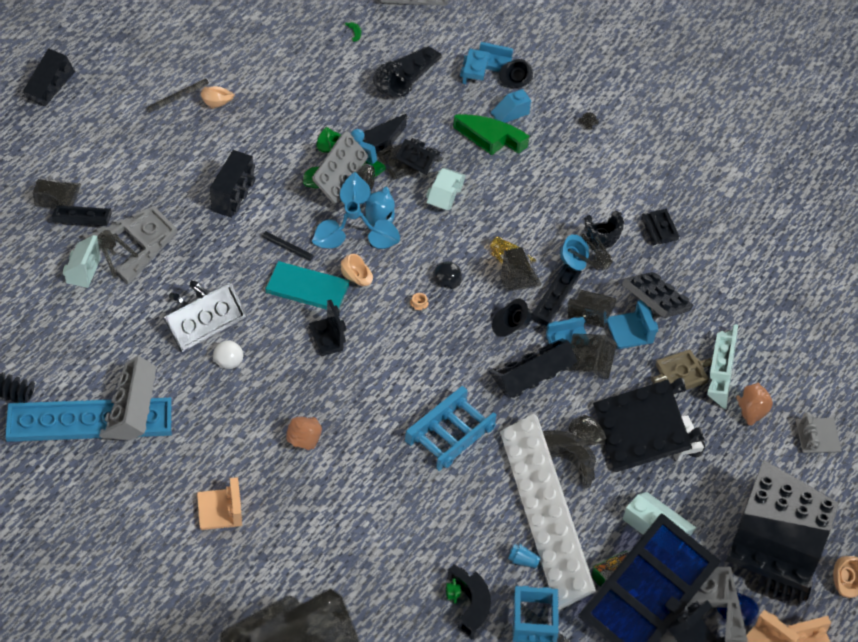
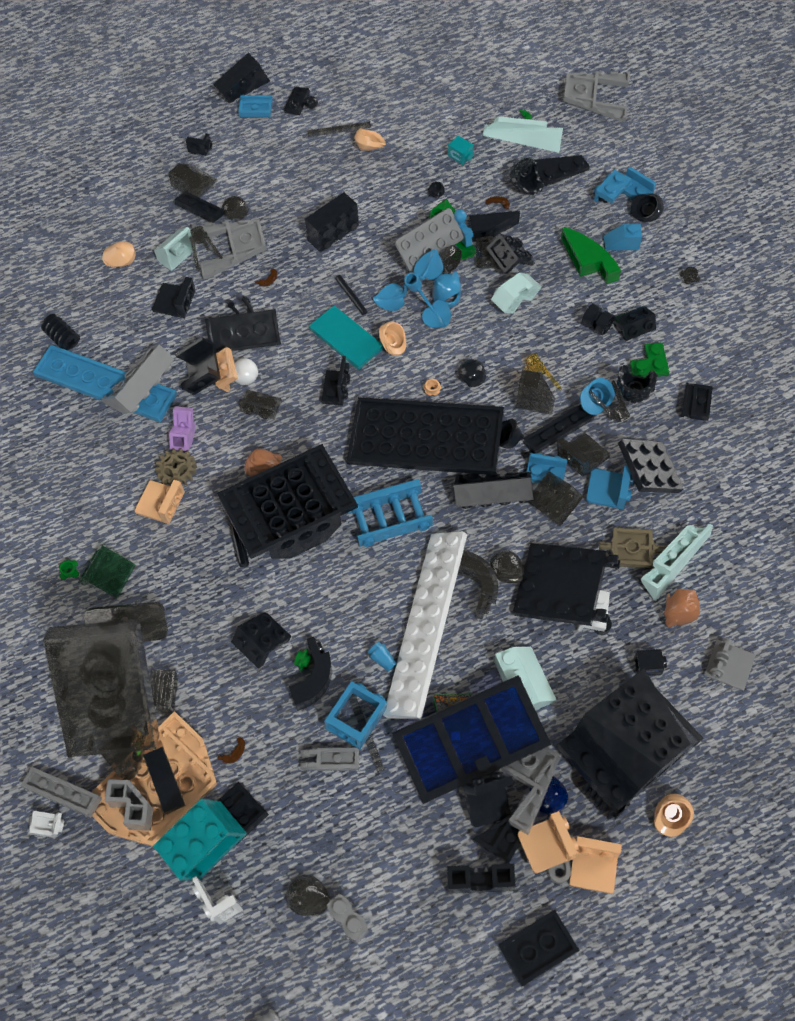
camera: 35 degrees right, 10 degrees up
(23, 291) = (119, 254): none -> light nougat hat
(42, 157) = (199, 146): none -> black bracket
(77, 100) = (255, 106): none -> dark azure plate
(111, 313) = (175, 299): none -> black bracket
(118, 80) = (299, 98): none -> black plate
(119, 204) = (235, 208): none -> clear smoke hair
(167, 604) = (64, 566): none -> green plate
(182, 364) = (201, 365): none -> black panel
(197, 260) = (270, 280): none -> reddish brown piece
(202, 430) = (184, 427): none -> lavender brick
(207, 593) = (107, 571): none -> clear green bracket
(210, 357) = (226, 368): none -> light nougat bracket
(218, 467) = (176, 464): none -> dark tan gear
(263, 379) = (260, 404): none -> clear smoke bracket
(310, 121) = (436, 189): none -> black plate
(313, 77) = (460, 150): none -> teal brick
(321, 512) = (241, 552): none -> black axle
(363, 41) = (525, 132): none -> light aqua wedge
(363, 452) = (289, 505): none -> black wedge
(374, 111) = (498, 199): none -> reddish brown piece
(400, 591) = (259, 637): none -> black bracket
(442, 346) = (426, 436): none -> black plate
(533, 186) = (598, 319): none -> black wheel
(567, 177) = (636, 322): none -> black bracket
(602, 206) = (654, 361): none -> green plate
(752, 459) = (651, 661): none -> black brick

